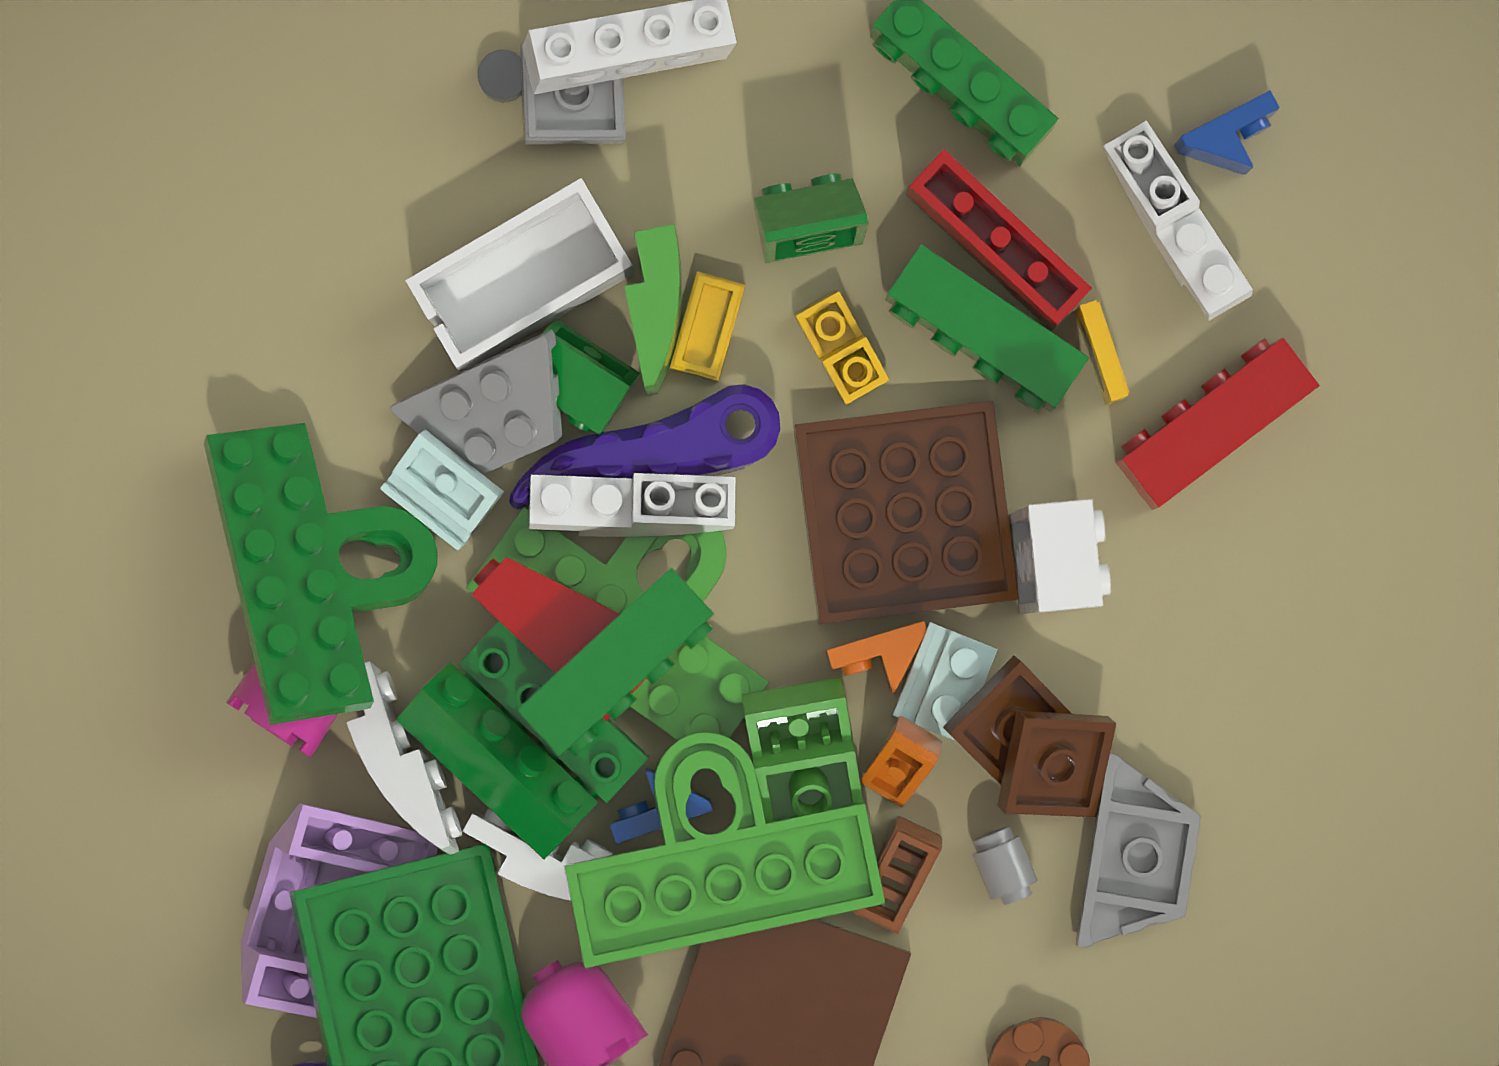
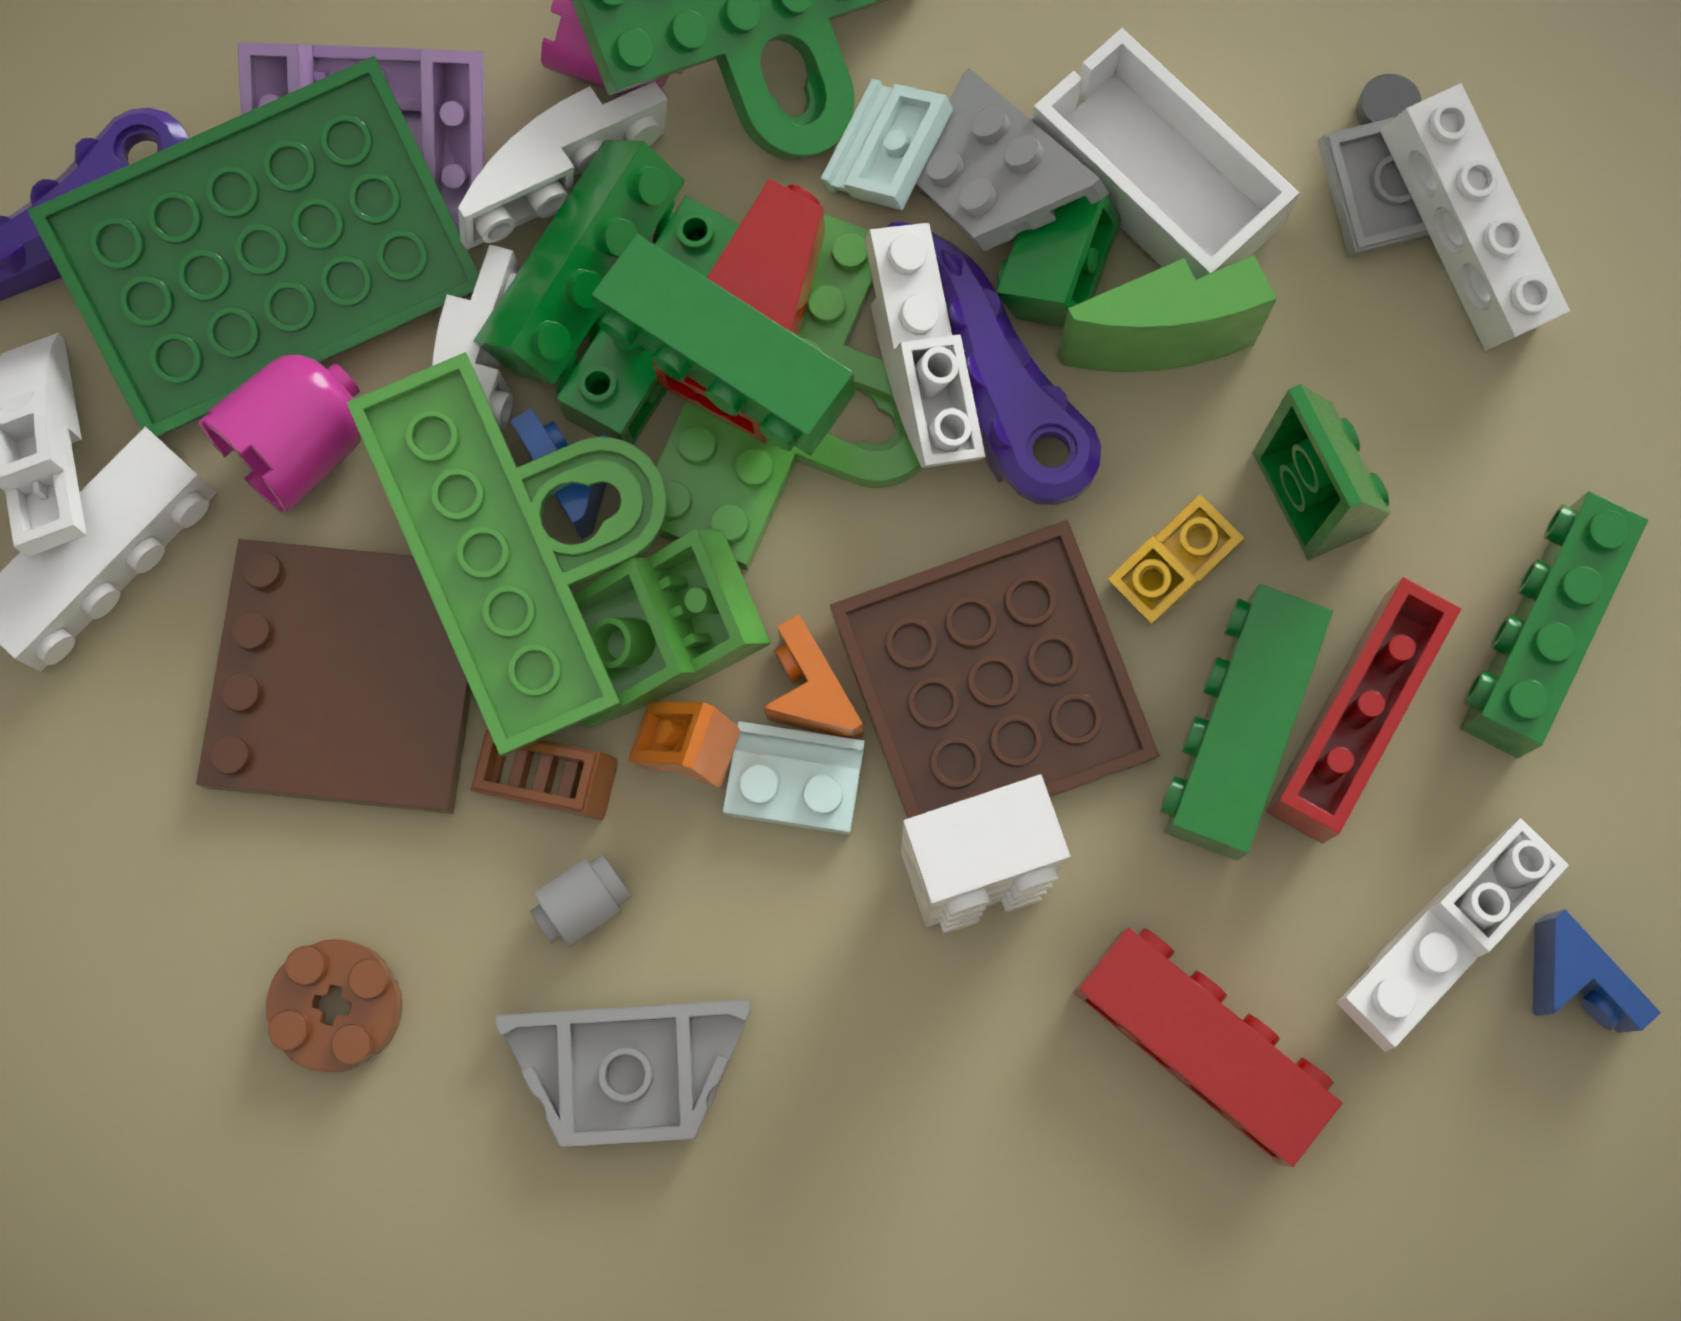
camera: 80 degrees right, 10 degrees down
(707, 326) = (1158, 400): yellow tile -> none
(988, 718) = (756, 869): reddish brown plate -> none
(1056, 764) = (720, 932): reddish brown plate -> none
(1101, 352) = (1257, 876): yellow tile -> none

